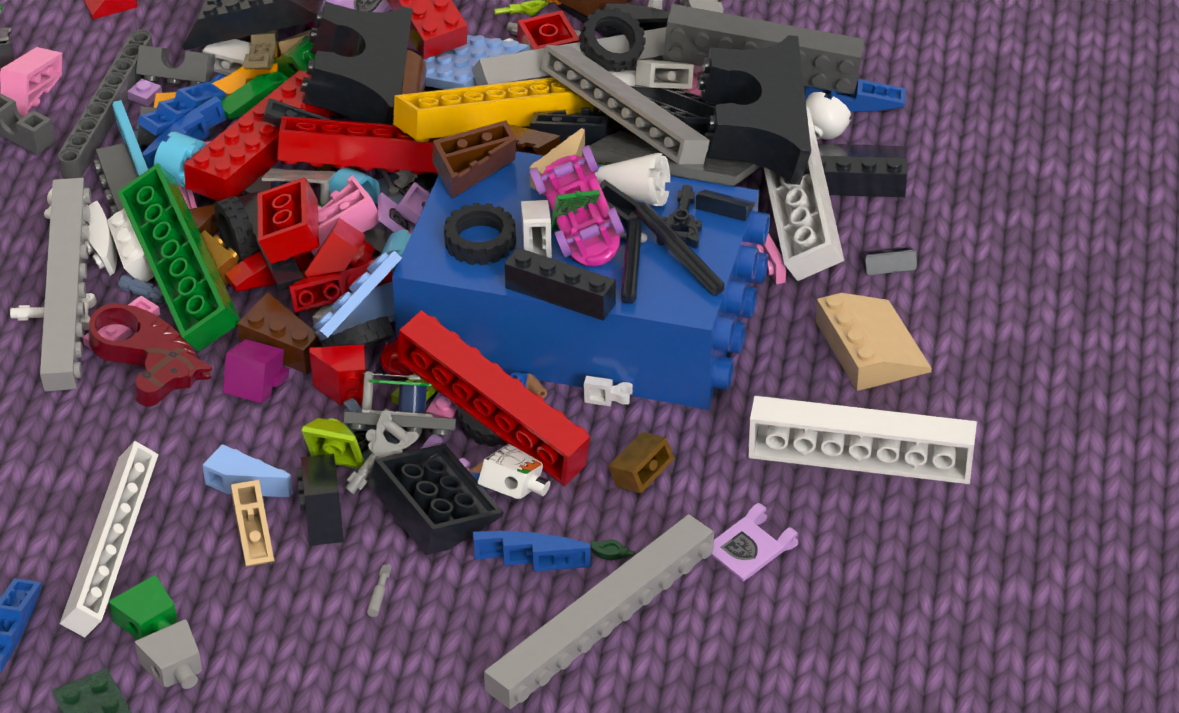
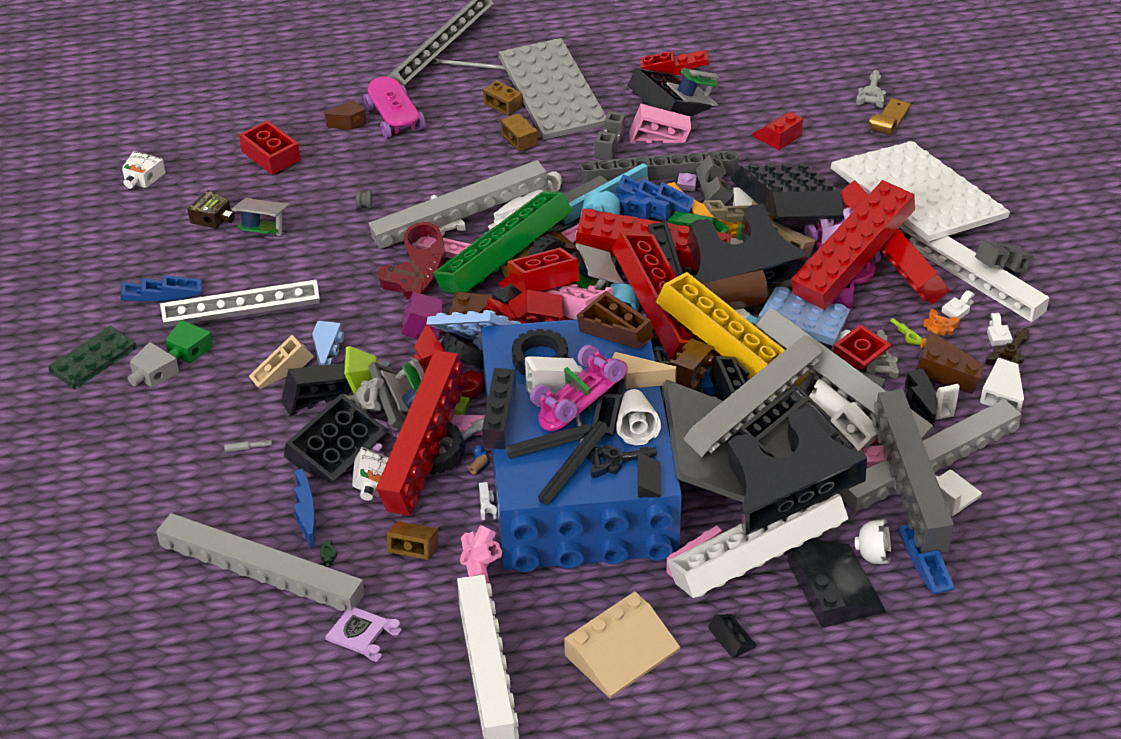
camera: 70 degrees right, 0 degrees up
(620, 21) = (853, 356): black tyre -> none
(704, 402) = (479, 551): none -> bright pink piece

